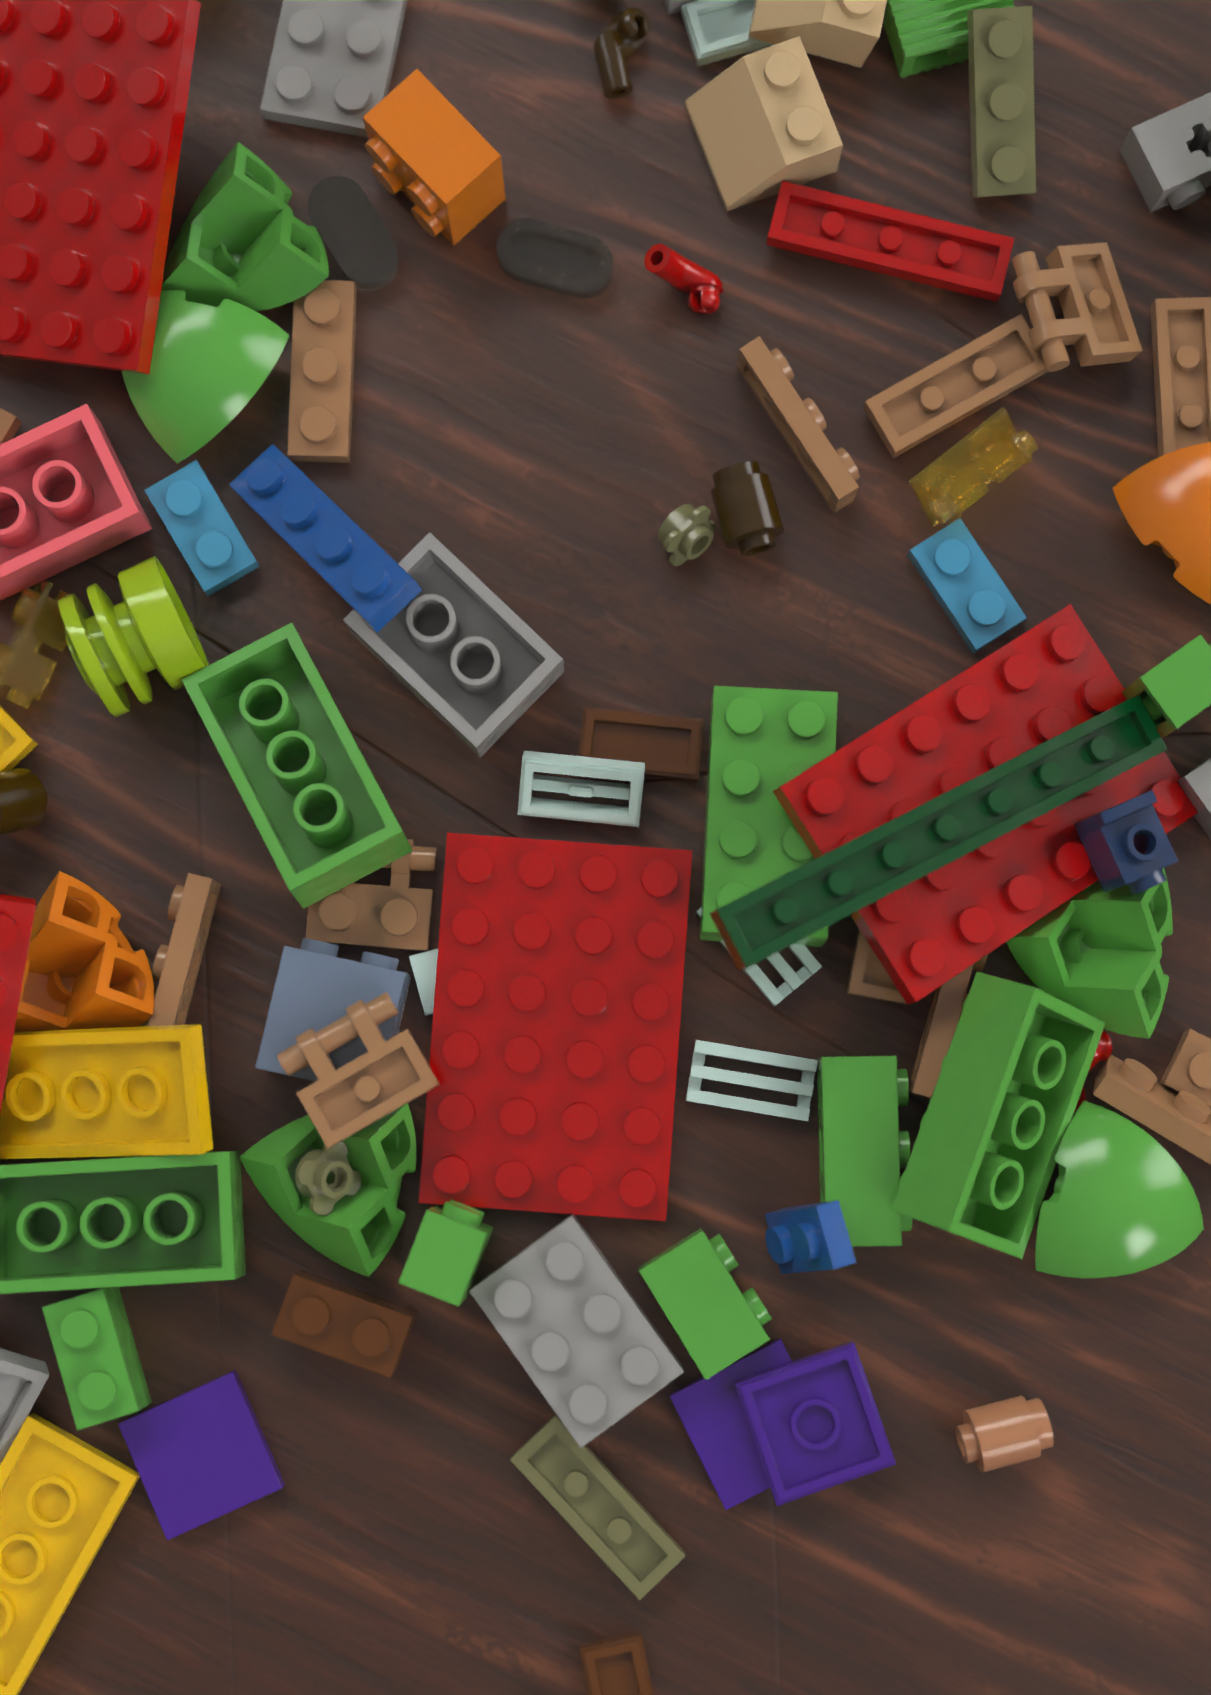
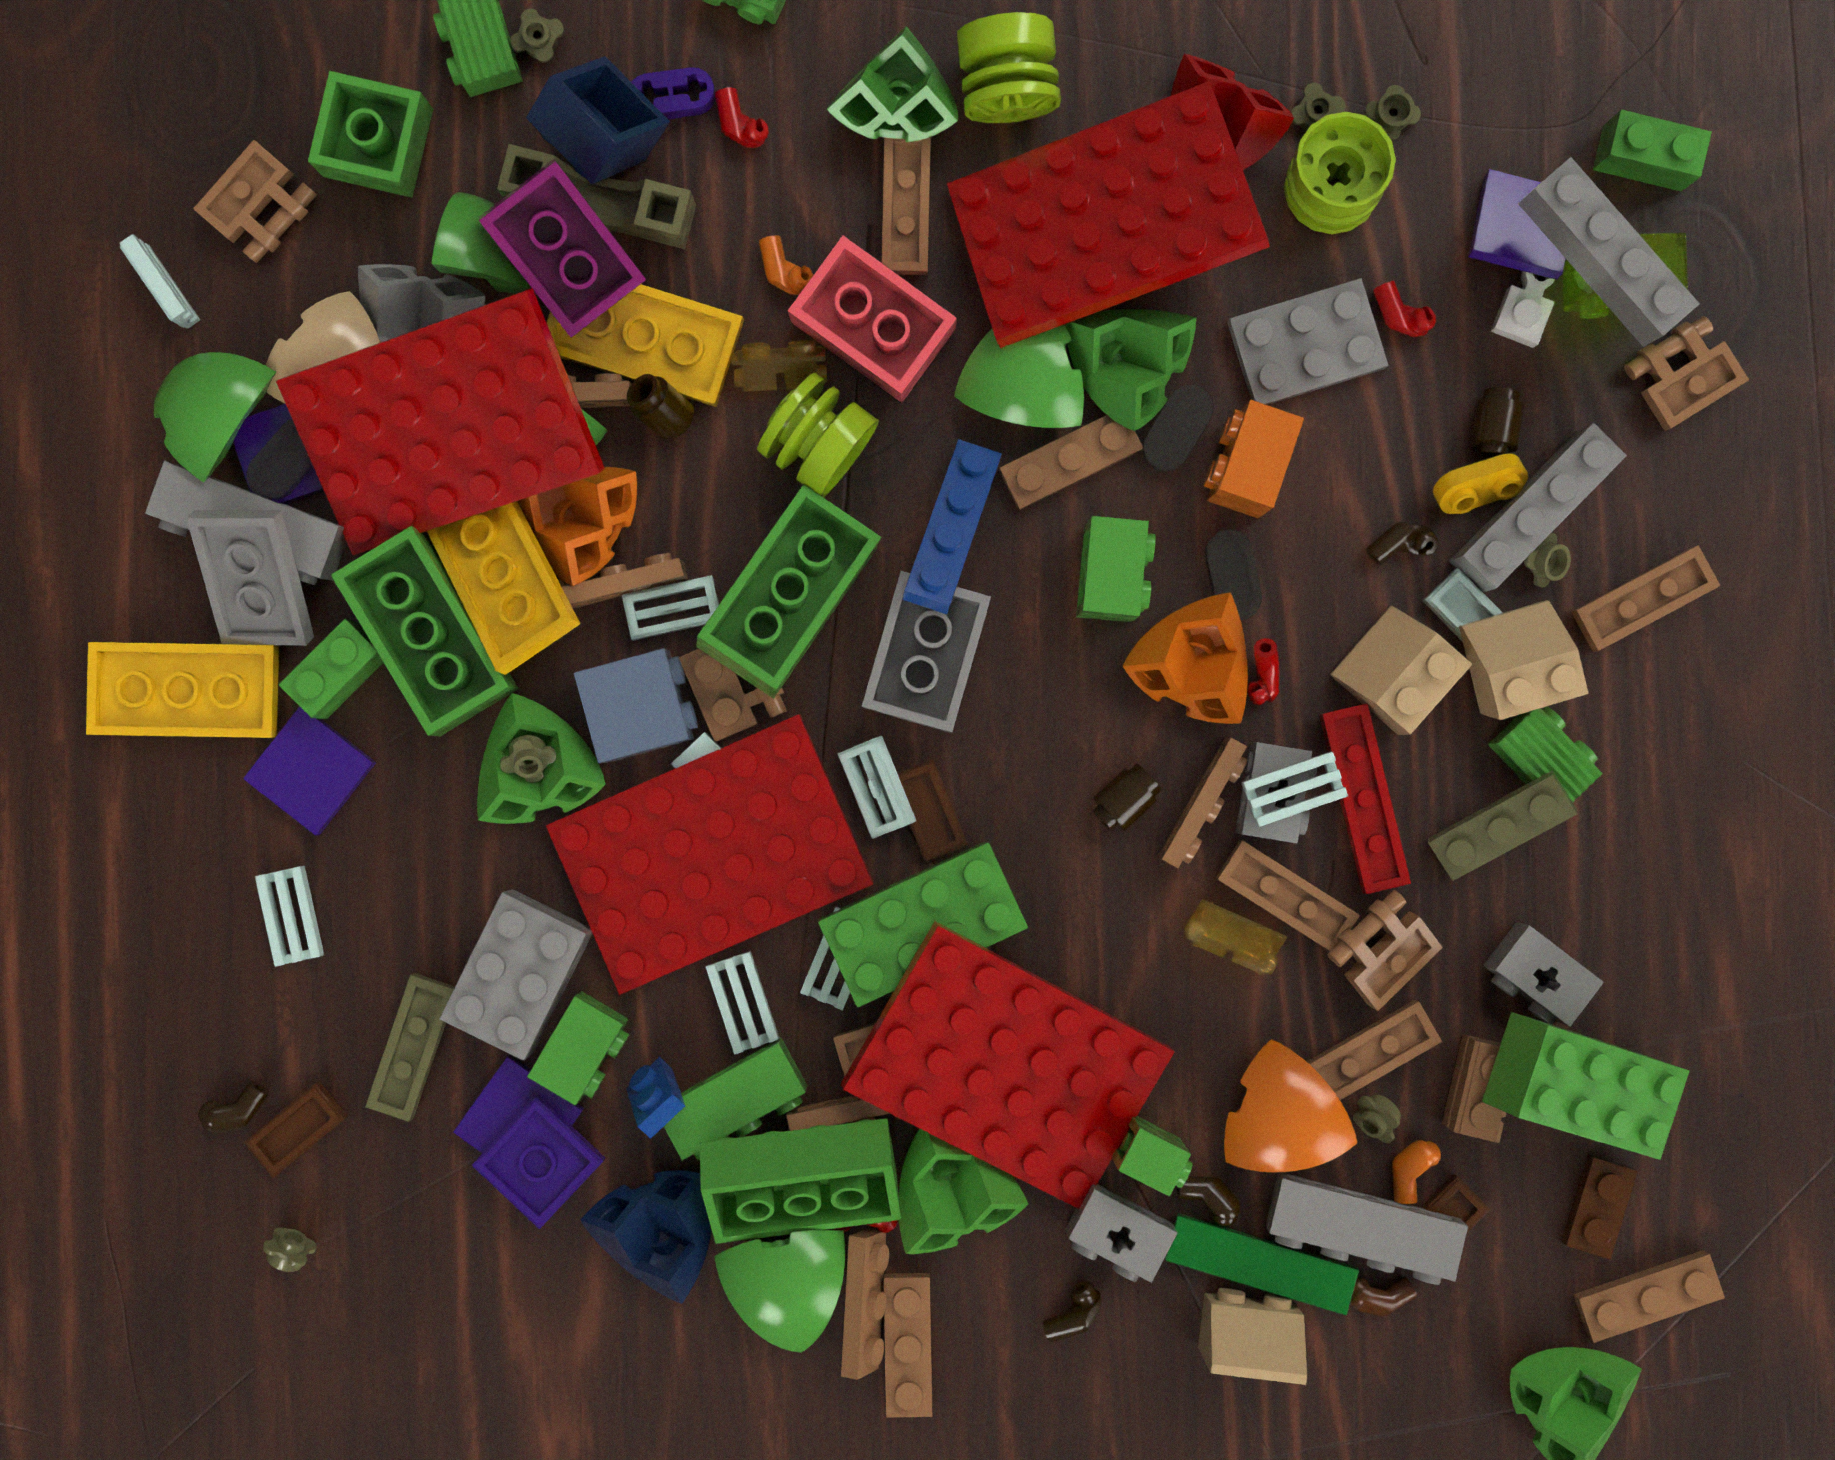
camera: 55 degrees right, 5 degrees up
(202, 528) = (920, 436): dark azure plate -> none
(220, 912) = (634, 616): none -> light aqua tile
(344, 1323) = (441, 820): reddish brown brick -> none
(357, 1597) = (272, 919): none -> light aqua tile
(366, 1087) = (596, 754): medium nougat plate -> none
(447, 1252) = (520, 865): bright green brick -> none
(474, 379) = (1114, 569): none -> bright green brick
(630, 347) = (1196, 660): none -> orange brick
(687, 533) = (1087, 766): olive plate -> none
(844, 257) = (1332, 776): none -> light aqua tile
(845, 364) = (1262, 760): none -> light grey brick
(936, 833) = (962, 1047): dark green plate -> none
(966, 586) = (1152, 974): dark azure plate -> none
(970, 1323) = (655, 1231): none -> dark blue brick
(1004, 1433) = (598, 1289): nougat brick -> none
(1127, 845) = (1020, 1162): dark blue brick -> none

